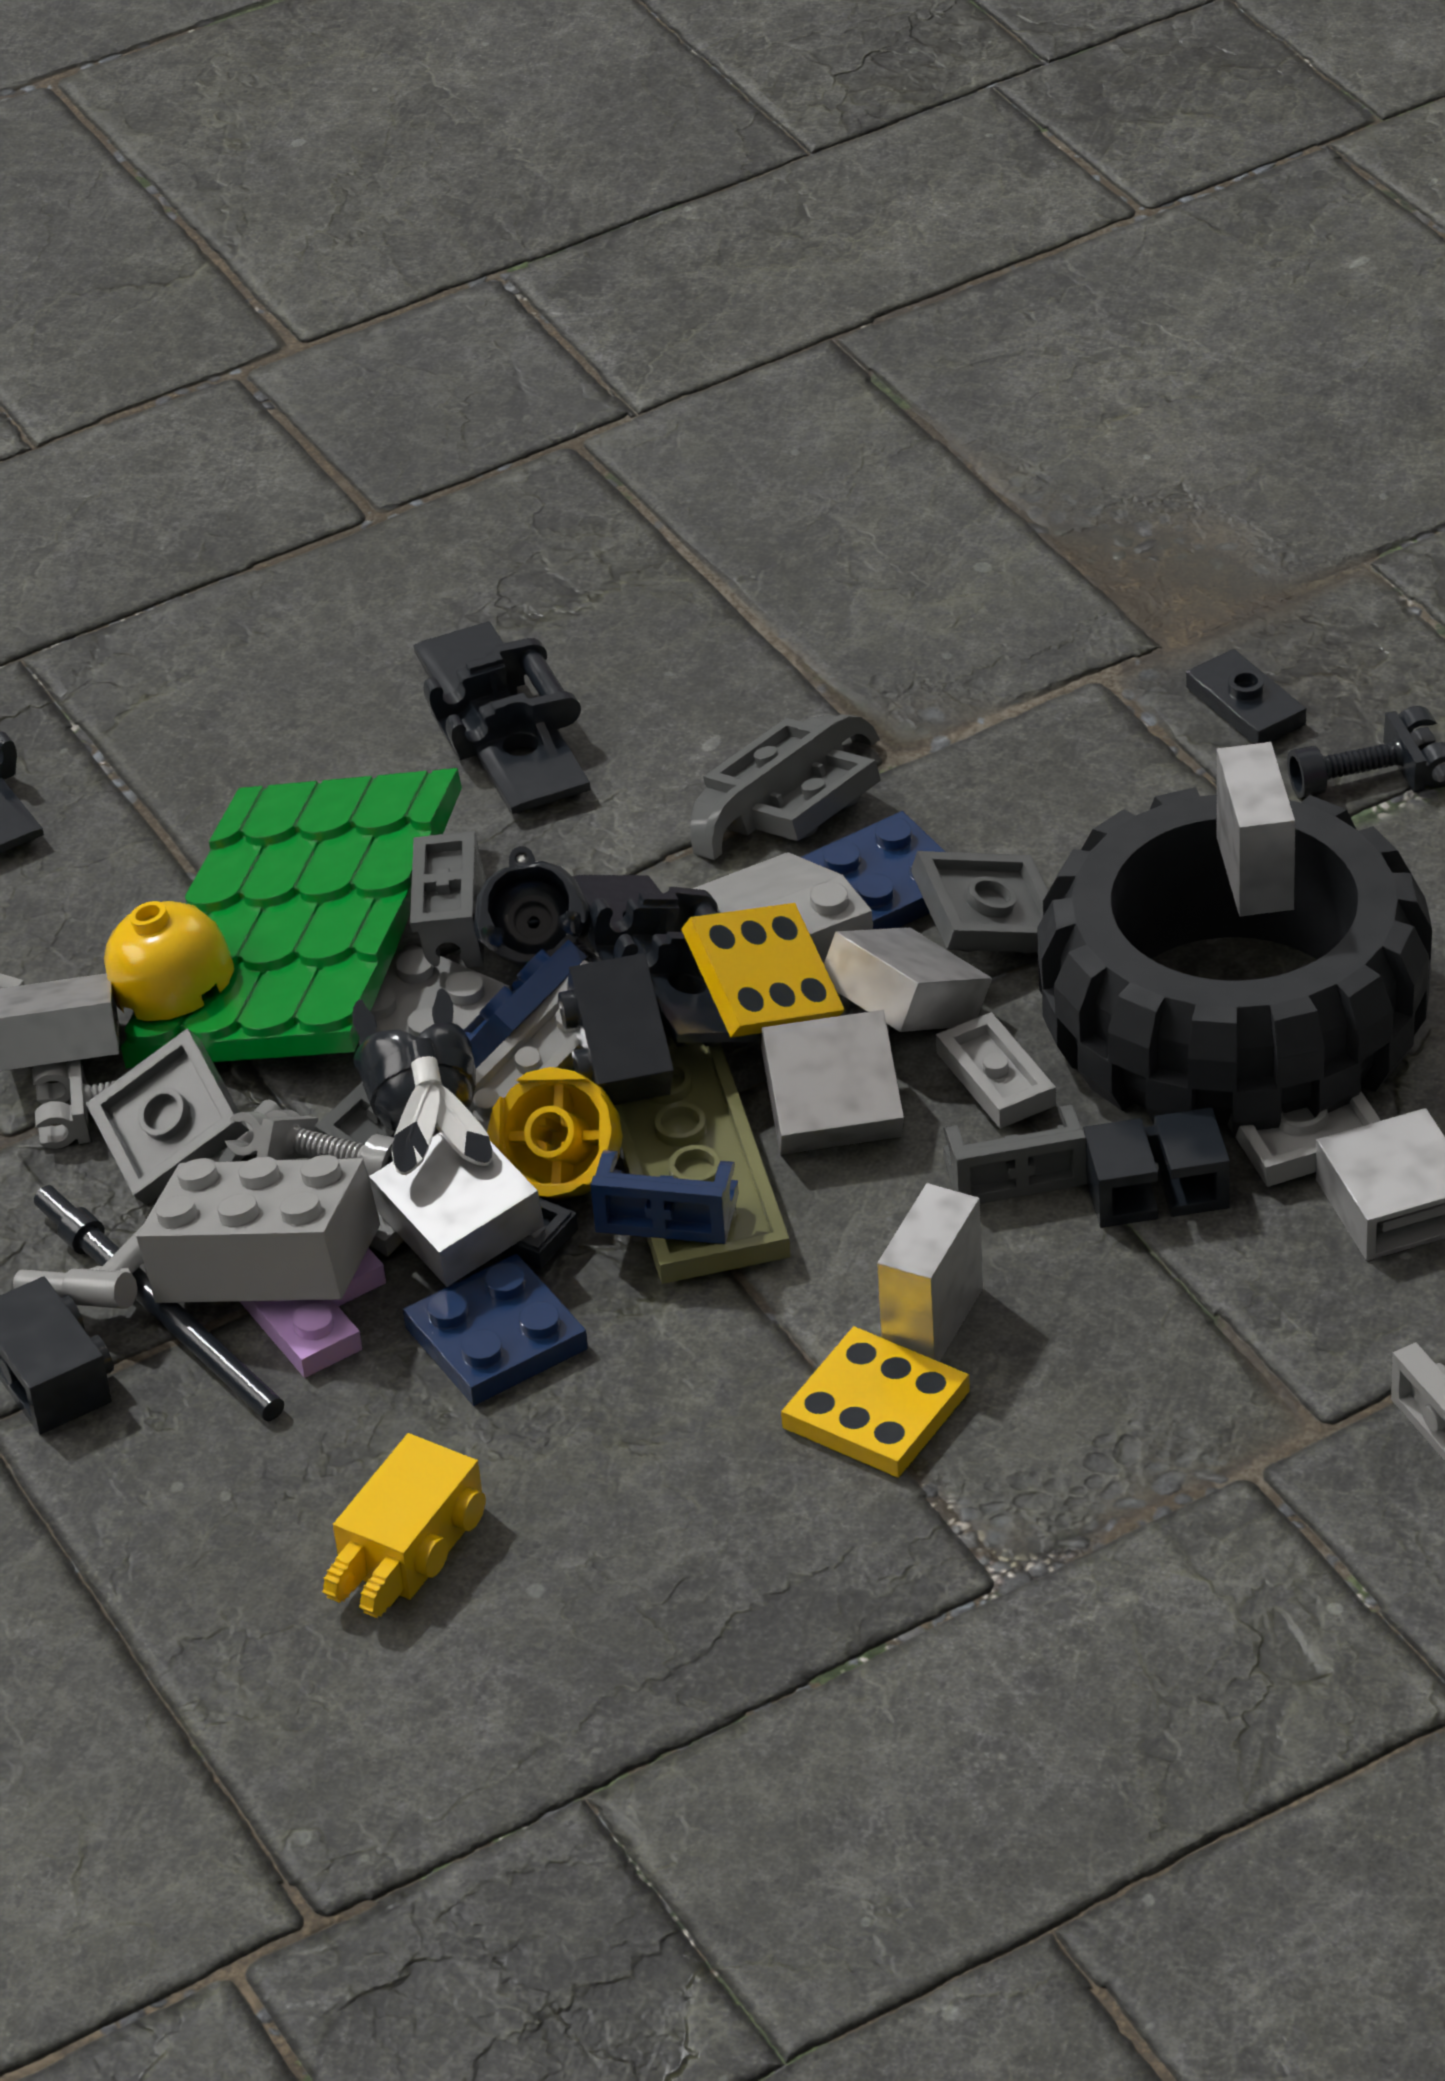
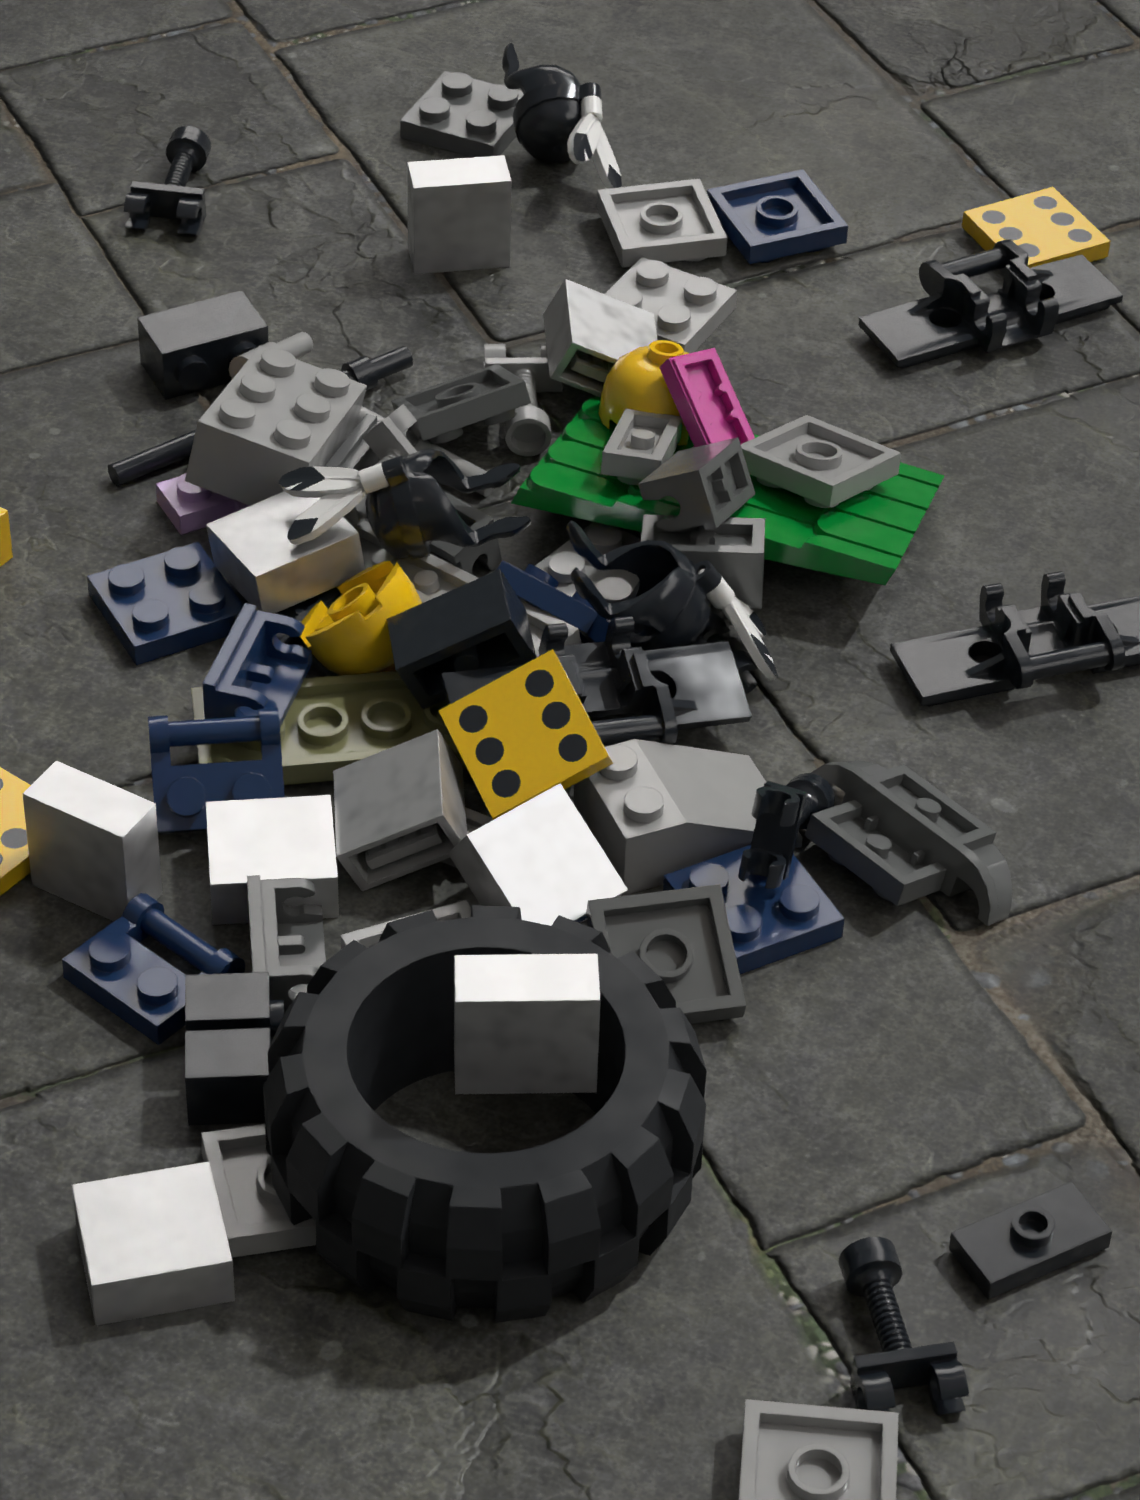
camera: 90 degrees right, 0 degrees up
(224, 894) = (705, 398): none -> dark pink plate
(280, 943) = (640, 445): none -> light grey plate
(284, 830) = (819, 461): none -> light grey plate
(378, 870) = (705, 481): none -> dark grey hinge
(798, 1217) = (185, 789): none -> dark blue plate
(841, 796) = (779, 816): none -> black bar
(882, 1169) = (274, 841): none -> piece
(1064, 1261) = (133, 978): none -> dark blue plate

